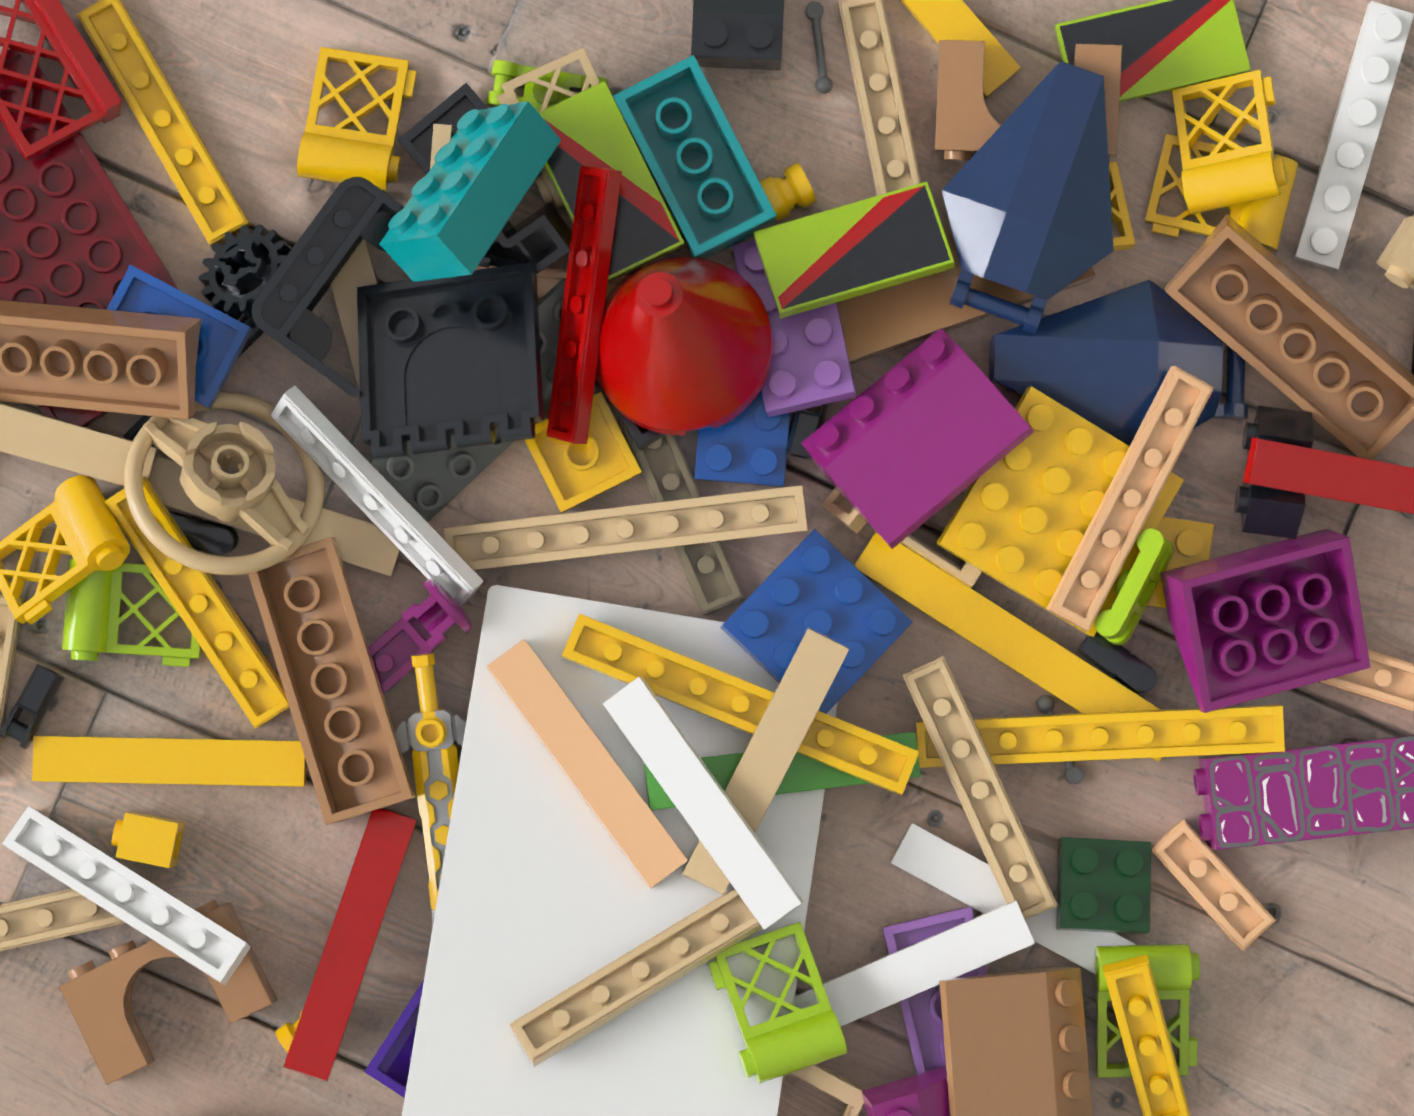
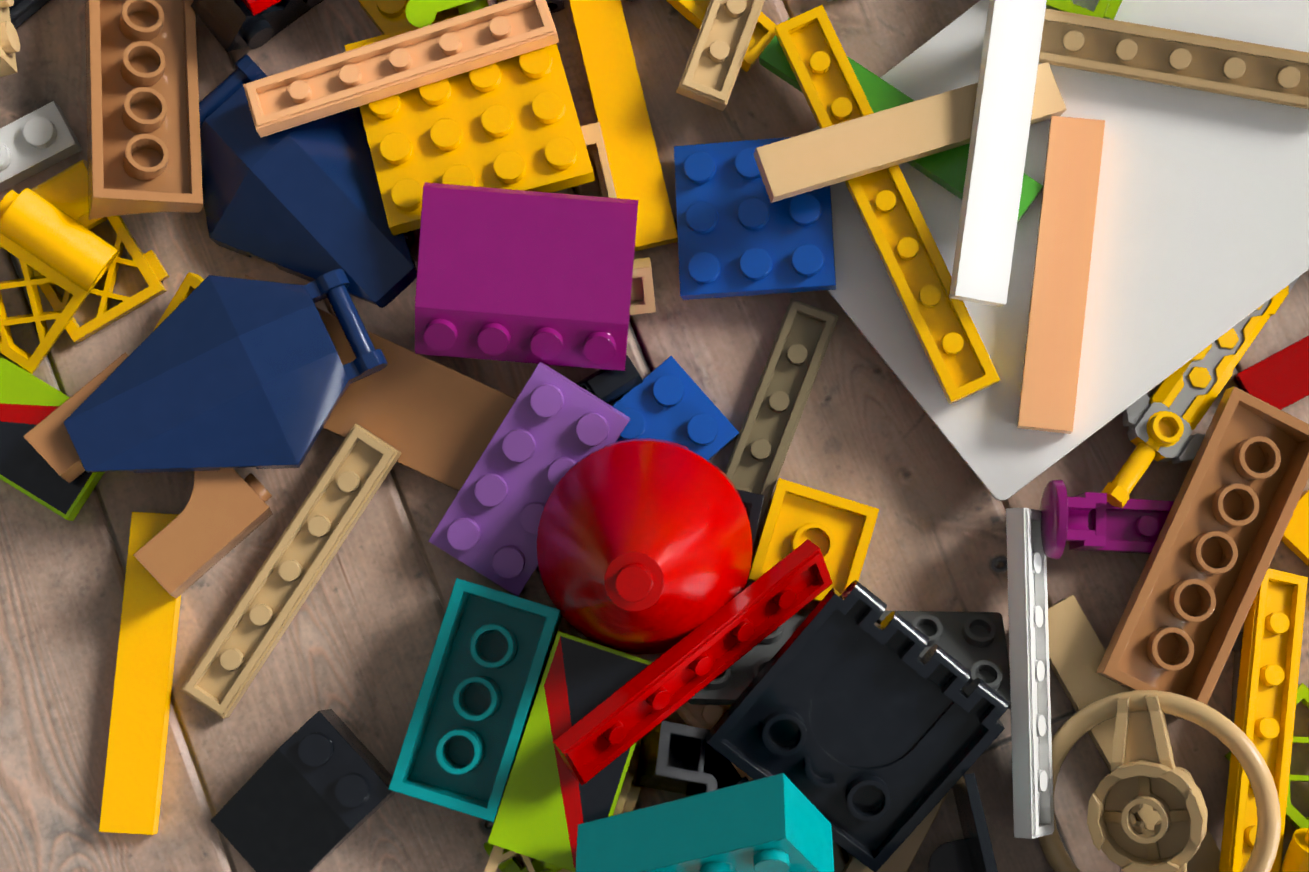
camera: 135 degrees left, 5 degrees down
(207, 535) = (1210, 782): black bar -> none
(630, 528) = (837, 441): tan plate -> none
(789, 190) = (424, 595): yellow wheel -> none
(814, 12) = (254, 729): dark grey hinge -> none
(853, 250) = (421, 486): tile -> none

